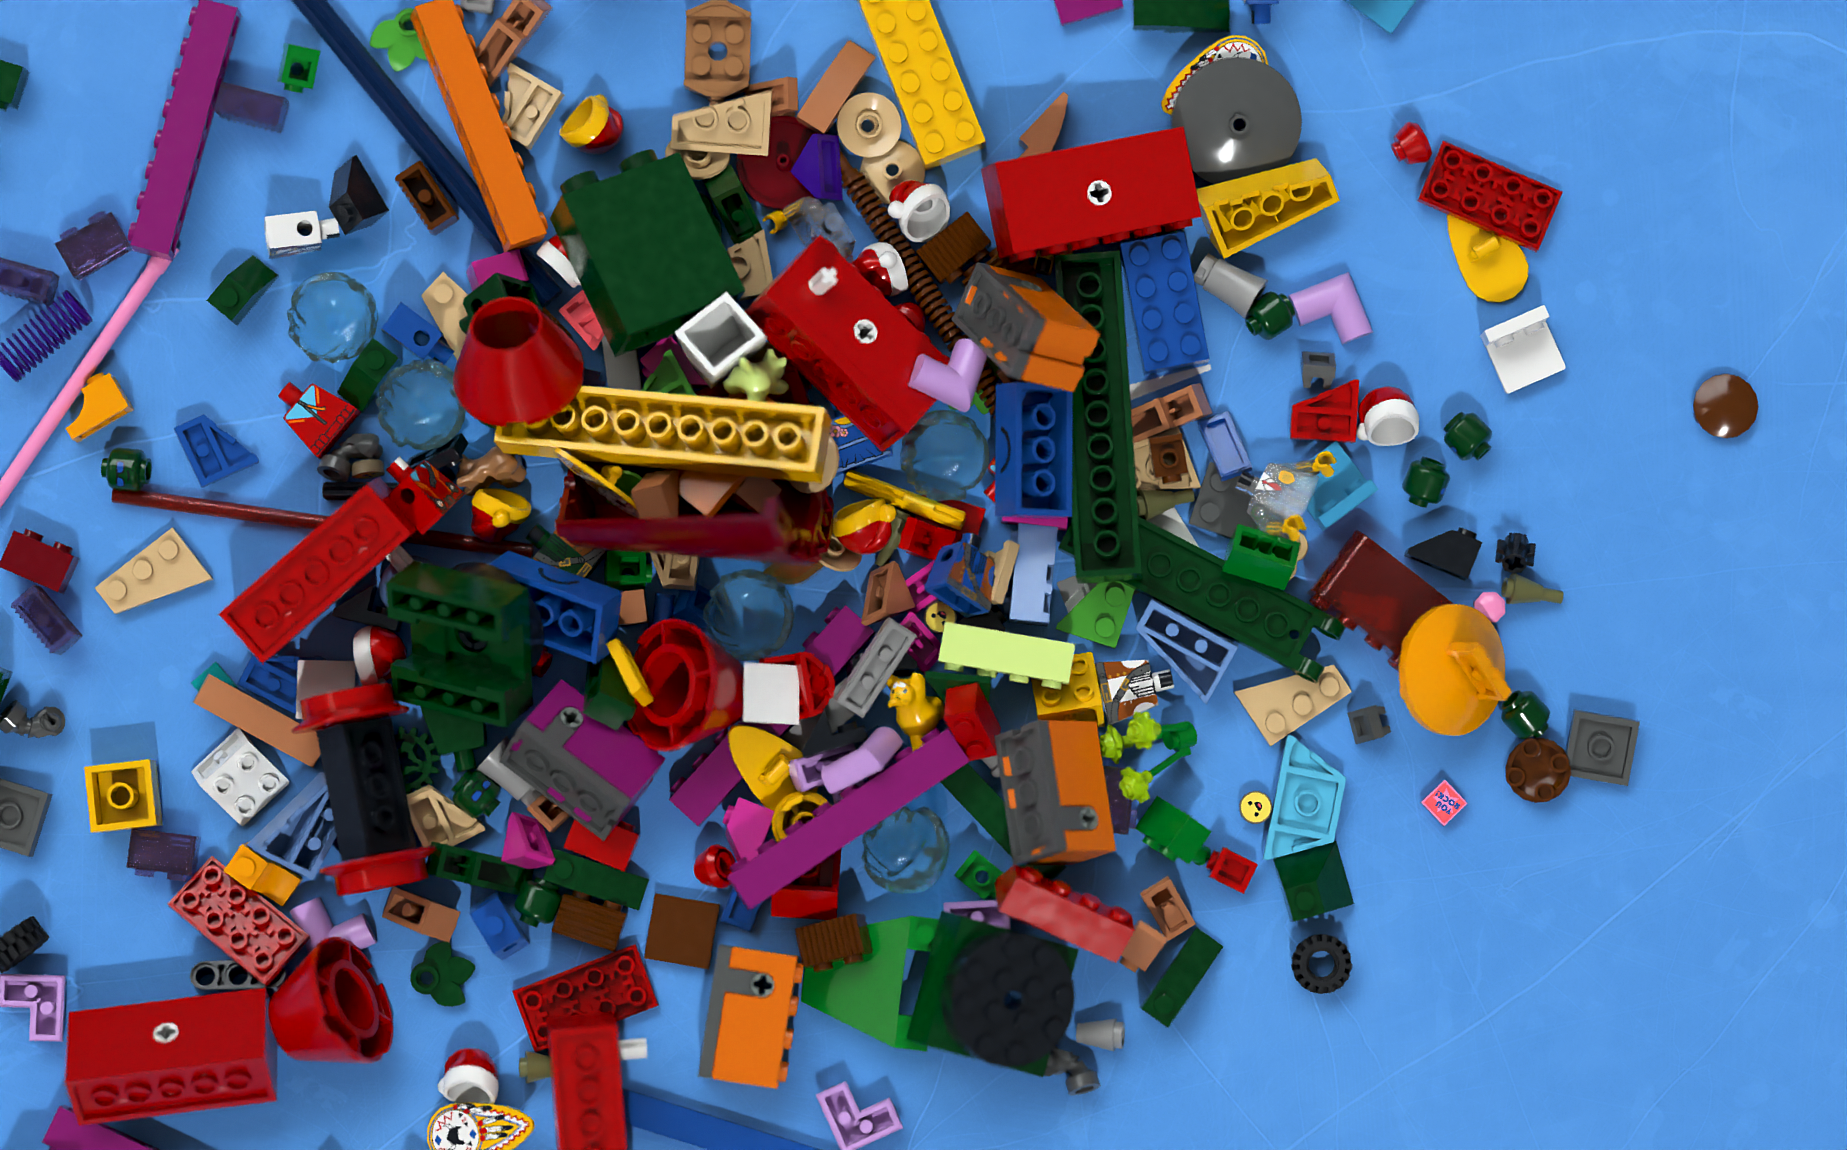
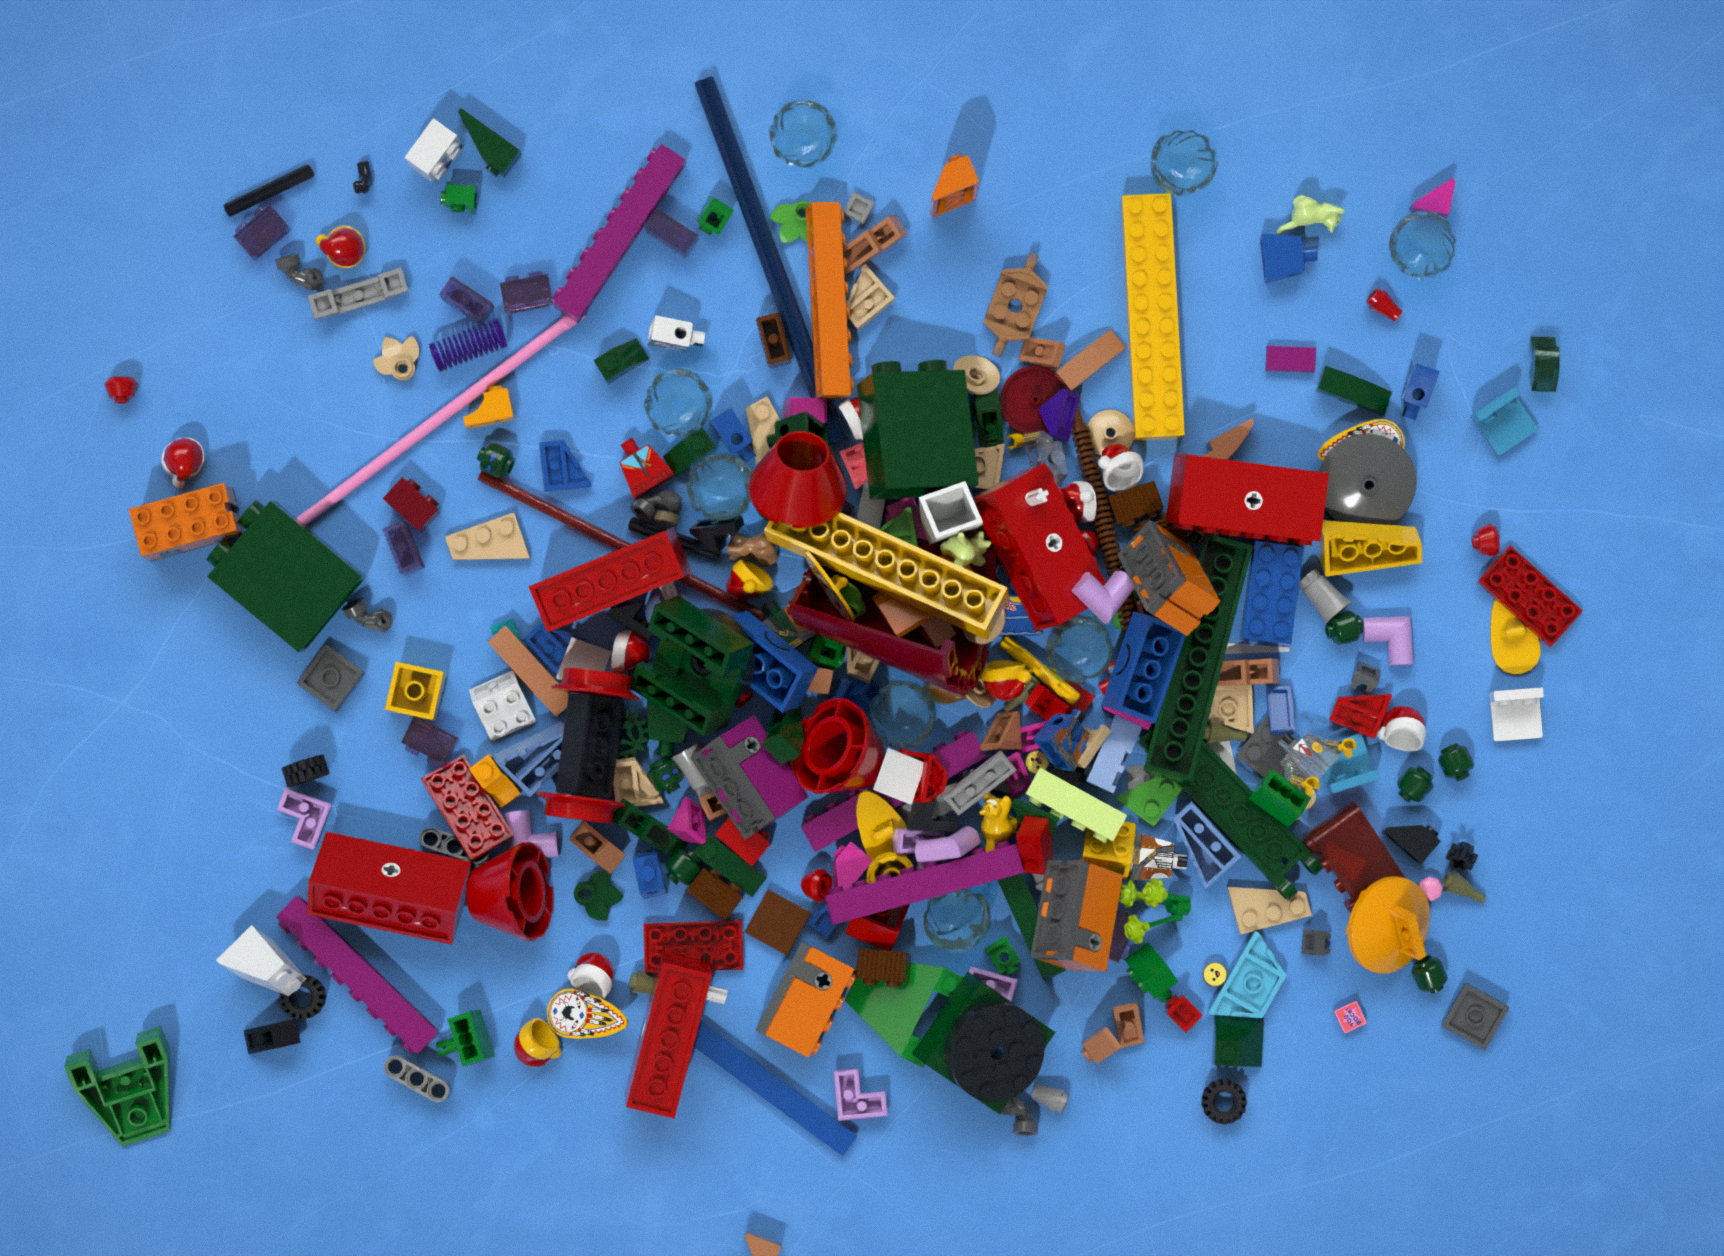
camera: 15 degrees right, 0 degrees up
(355, 198) = (723, 322): black slope -> none
(422, 493) = (700, 549): red torso -> none
(593, 126) = (908, 329): yellow piece -> none
(630, 672) = (804, 726): yellow tile -> none
(657, 494) = (867, 608): nougat slope -> none
(726, 127) = (1003, 362): tan wing -> none
(885, 123) = (1117, 395): tan dish -> none
(1064, 912) = (1054, 1002): red slope -> none
(1168, 444) = (1232, 696): reddish brown brick -> none
(1181, 977) = (1120, 1077): dark green slope -> none
(1538, 770) = (1425, 1016): reddish brown dish -> none
(1725, 406) = (1647, 803): reddish brown dish -> none

